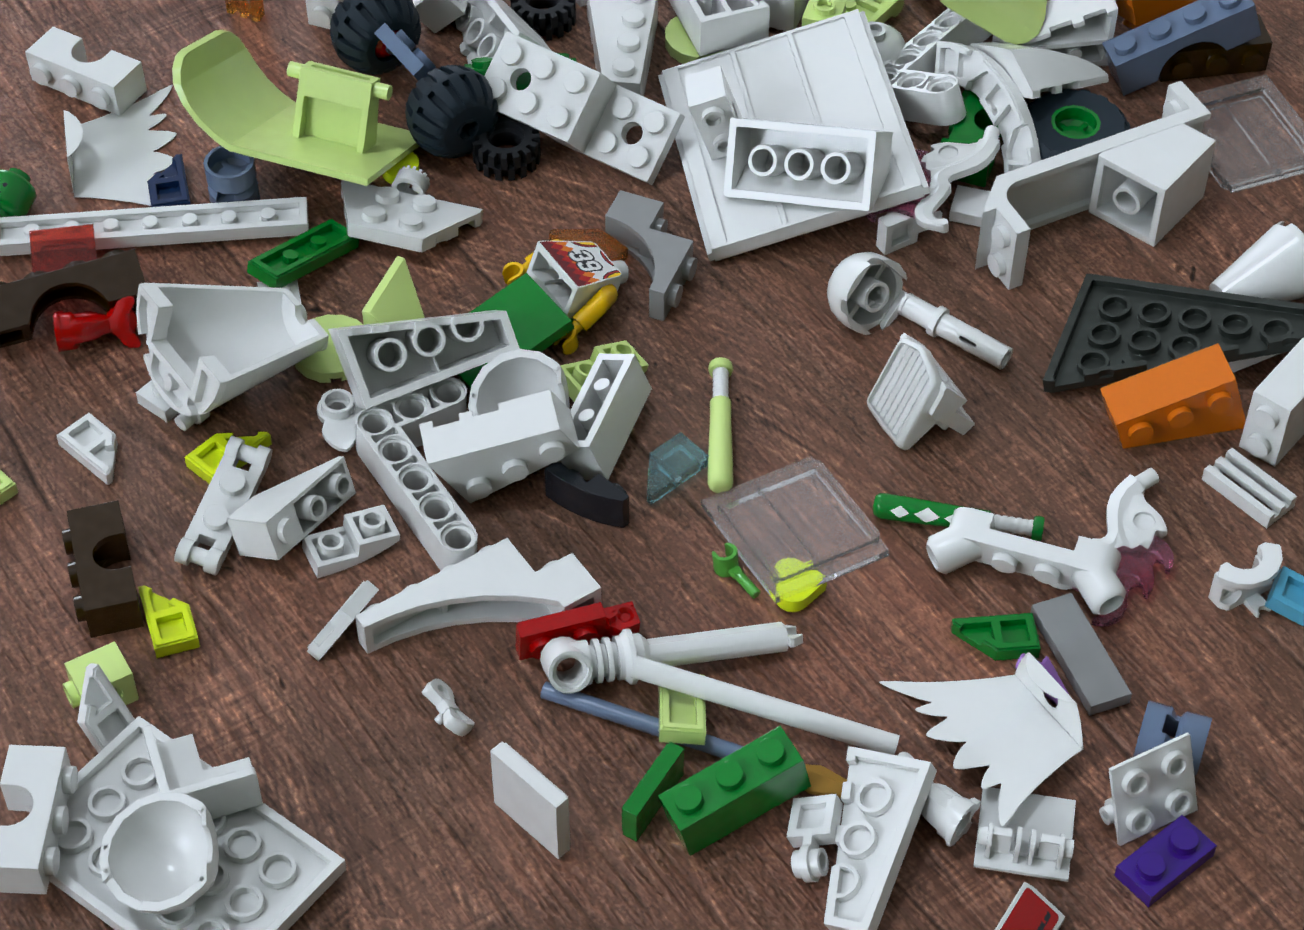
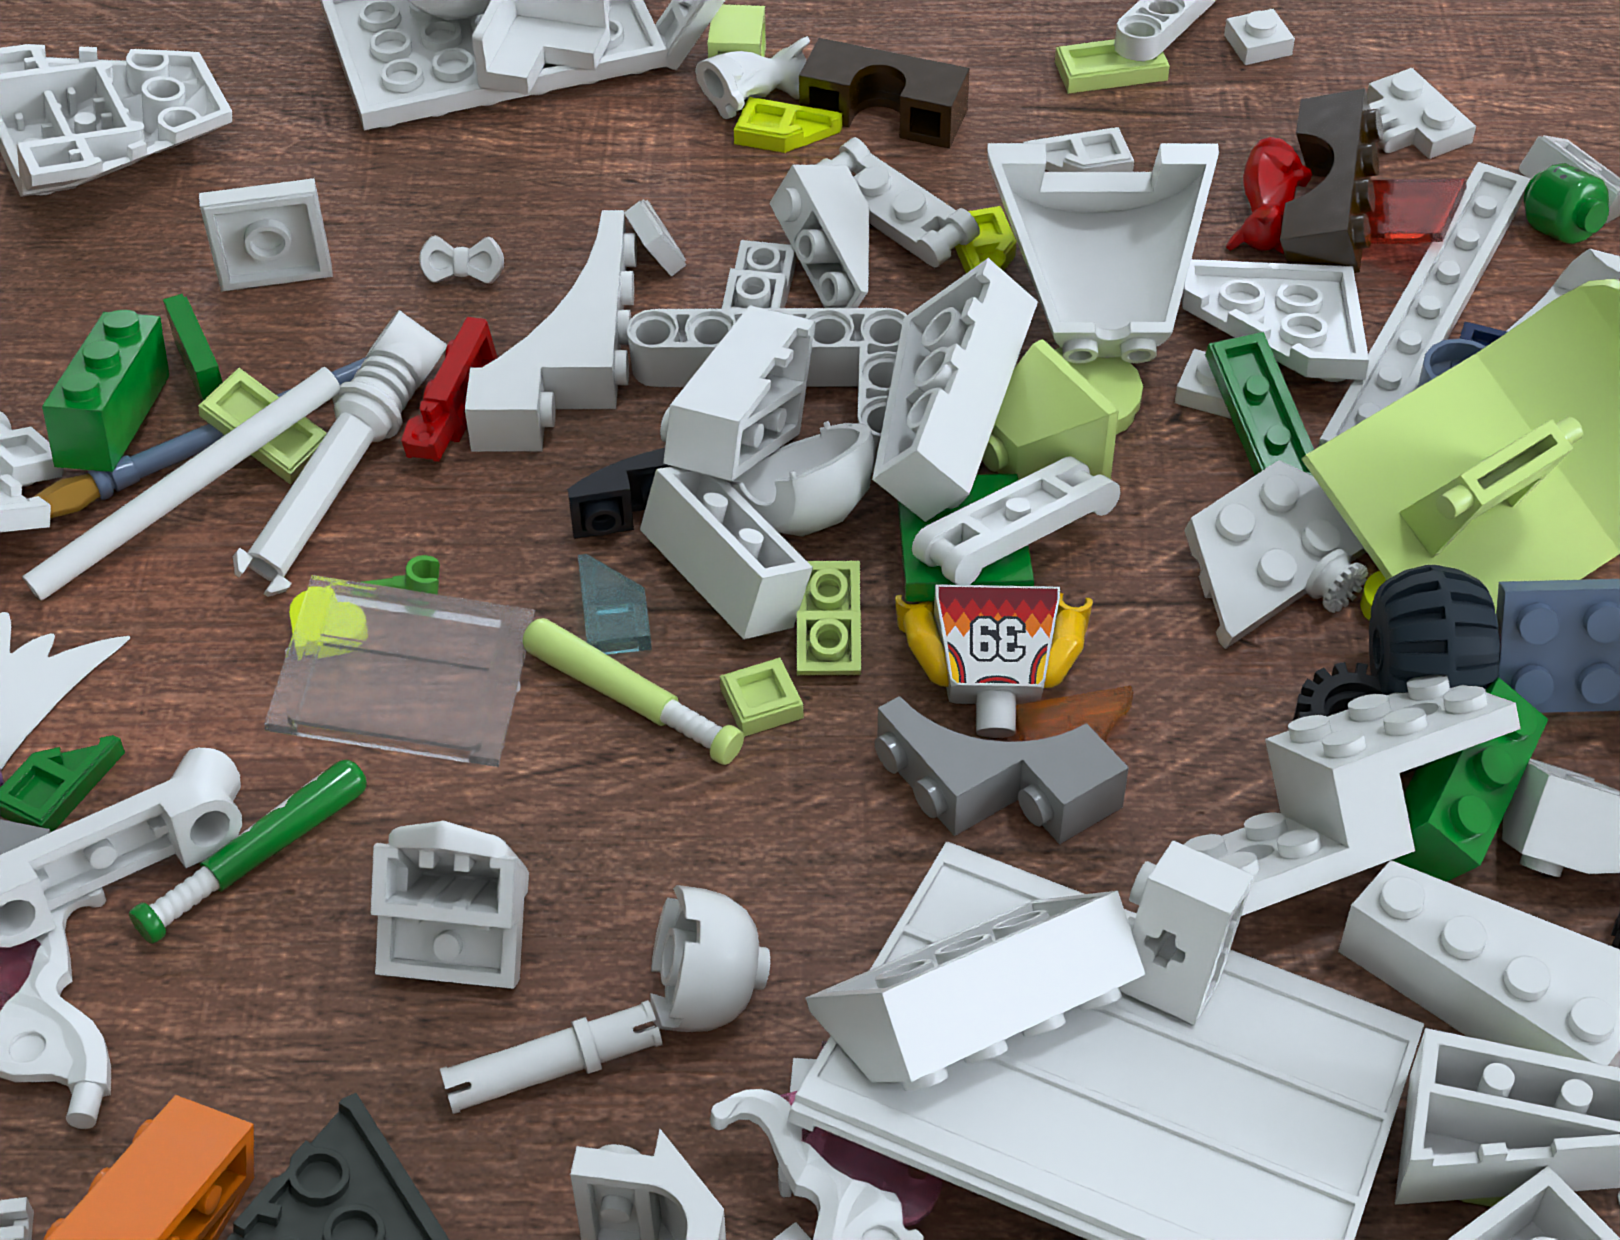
camera: 125 degrees right, 0 degrees up
(140, 648) = (740, 75): none -> white animal
(209, 257) = (1302, 308): none -> white plate
(484, 291) = (1013, 518): none -> white plate
(675, 374) = (761, 697): none -> yellowish green tile

